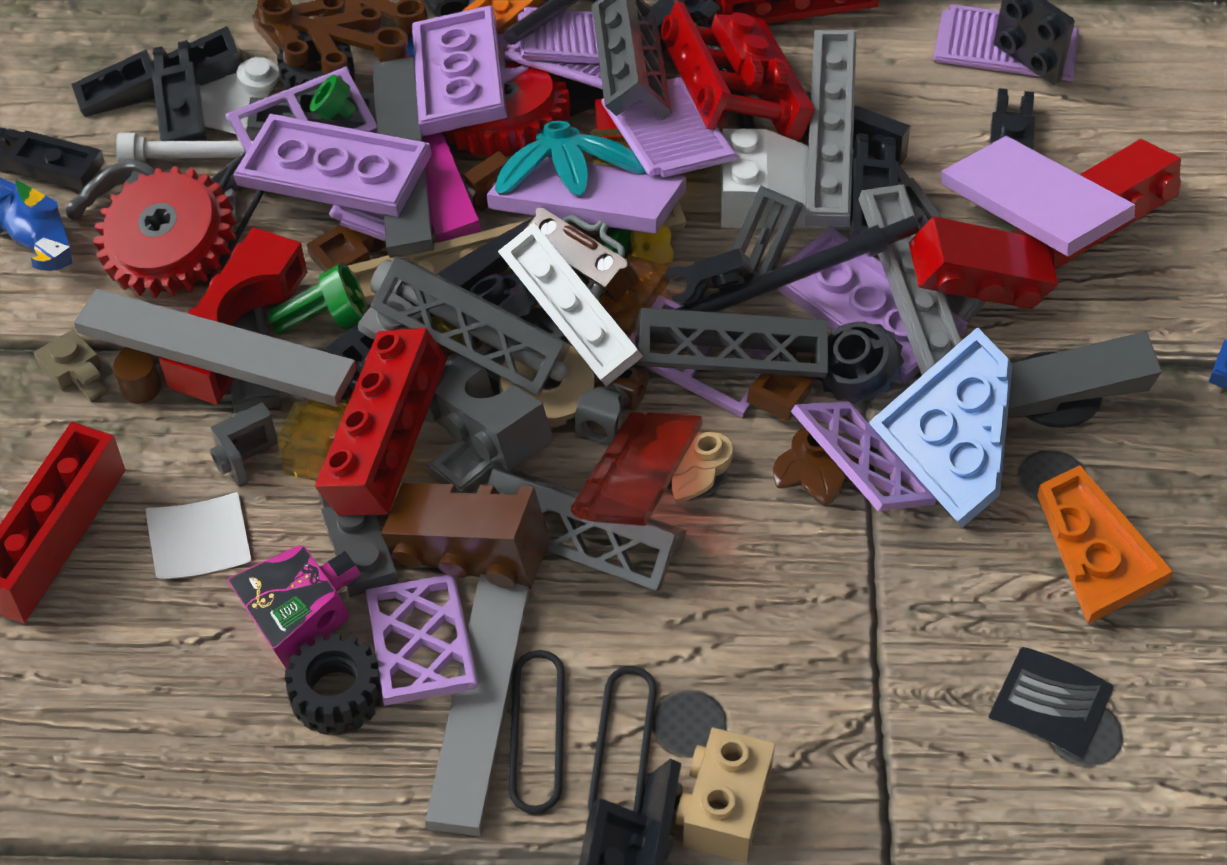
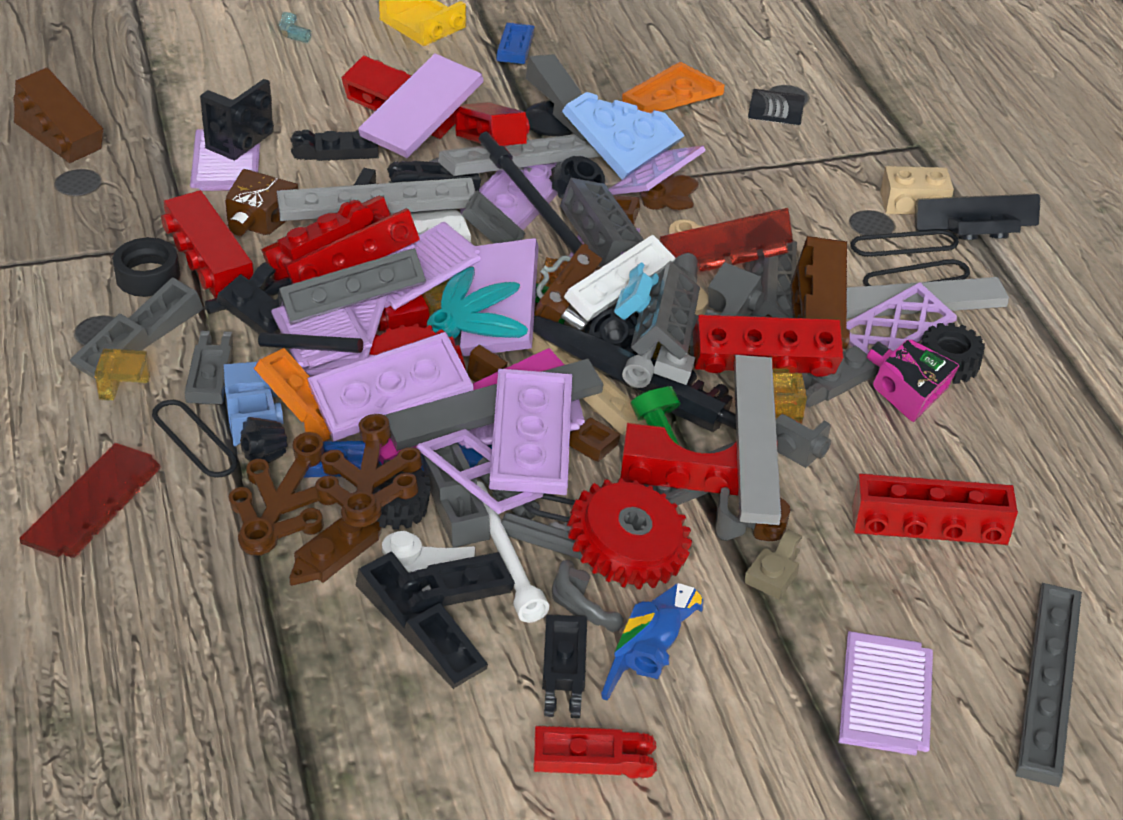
camera: 110 degrees left, 10 degrees down
(198, 537) = (877, 453): white sticker -> none
(332, 99) = (468, 446): green tile -> none
(506, 293) = (636, 294): none -> medium azure plate
(713, 272) = (549, 223): black plate -> none
(886, 42) = (254, 204): none -> reddish brown torso

